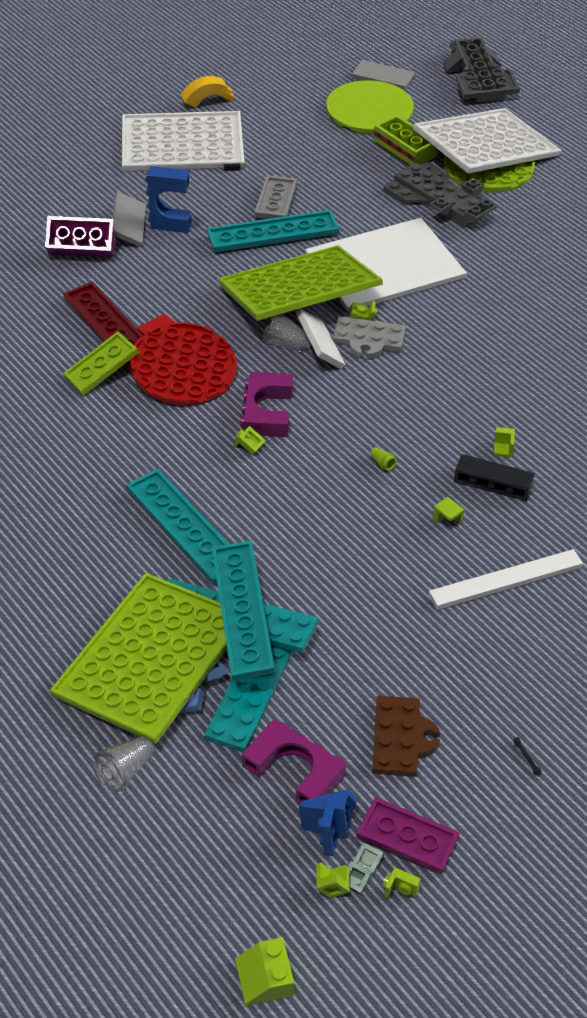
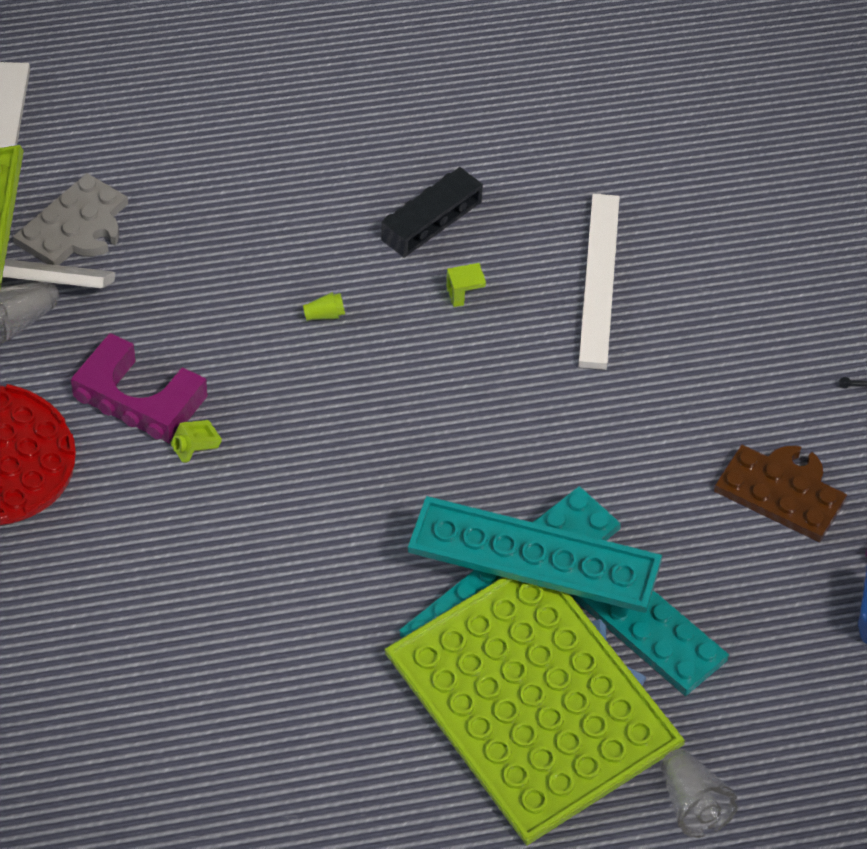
camera: 65 degrees left, 5 degrees up
(178, 519) = (306, 576): teal plate -> none
(279, 741) = (802, 583): magenta arch -> none
(360, 311) = (29, 203): lime bracket -> none
(504, 442) = (377, 173): lime panel -> none

